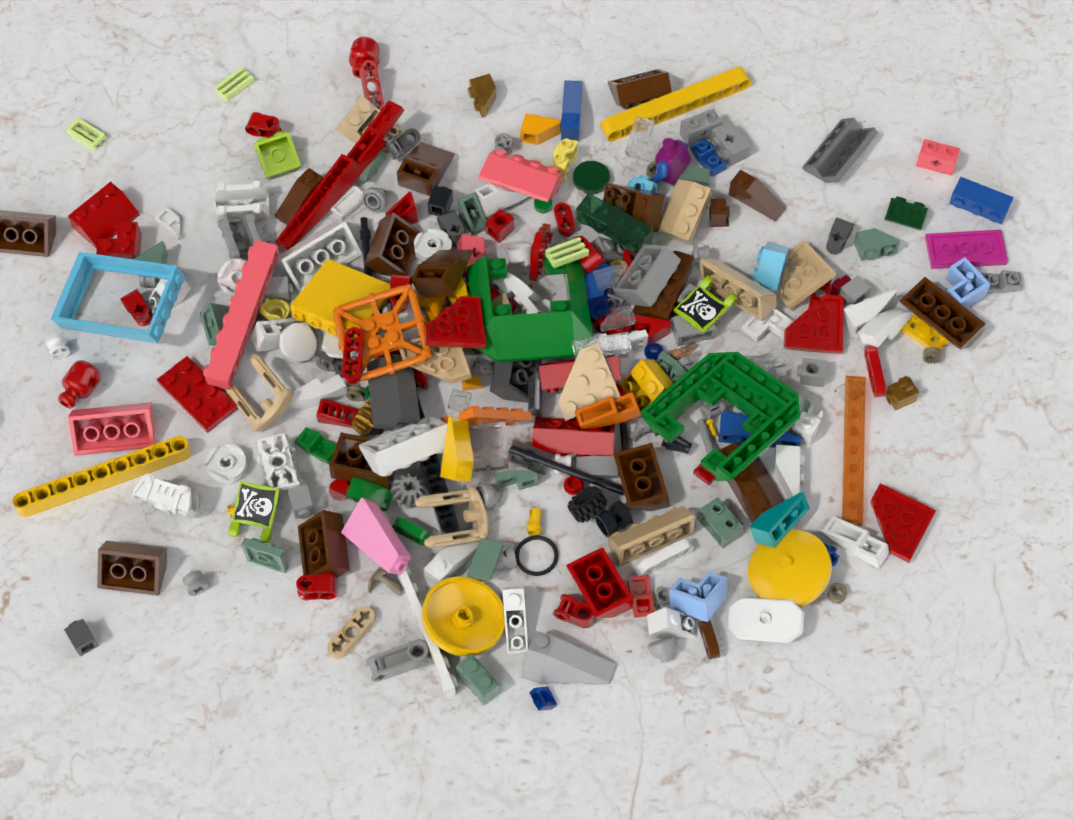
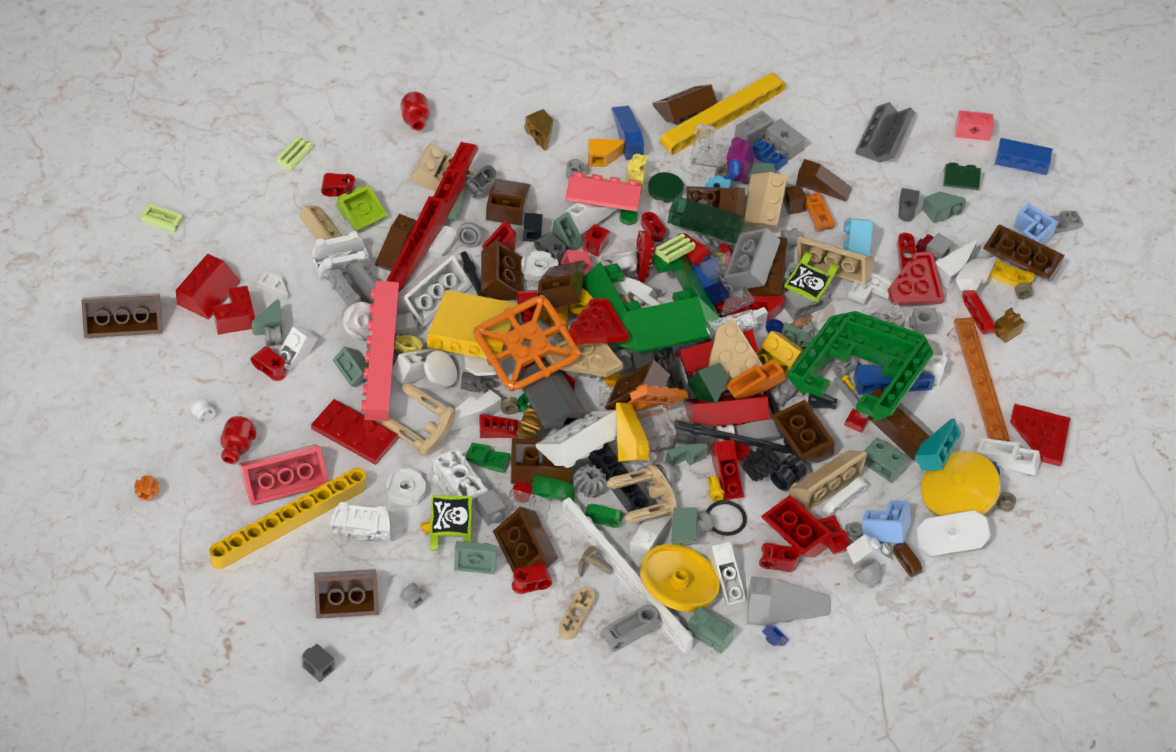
camera: 20 degrees left, 10 degrees down
(80, 278) = (211, 328): medium azure window -> none
(234, 164) = (318, 223): none -> tan slope
(356, 363) = (508, 358): red beam -> none
(373, 73) = (424, 124): red beam -> none
(376, 537) = (575, 521): bright pink slope -> none
(484, 394) = (649, 374): none -> reddish brown slope
(552, 504) = (727, 468): none -> red slope
(559, 406) = (709, 383): none -> dark green slope
(740, 229) = (818, 210): none -> orange plate
(787, 468) = (929, 405): white slope -> none
(803, 275) = (890, 240): tan plate -> none
(978, 247) = (1009, 200): dark pink tile -> none

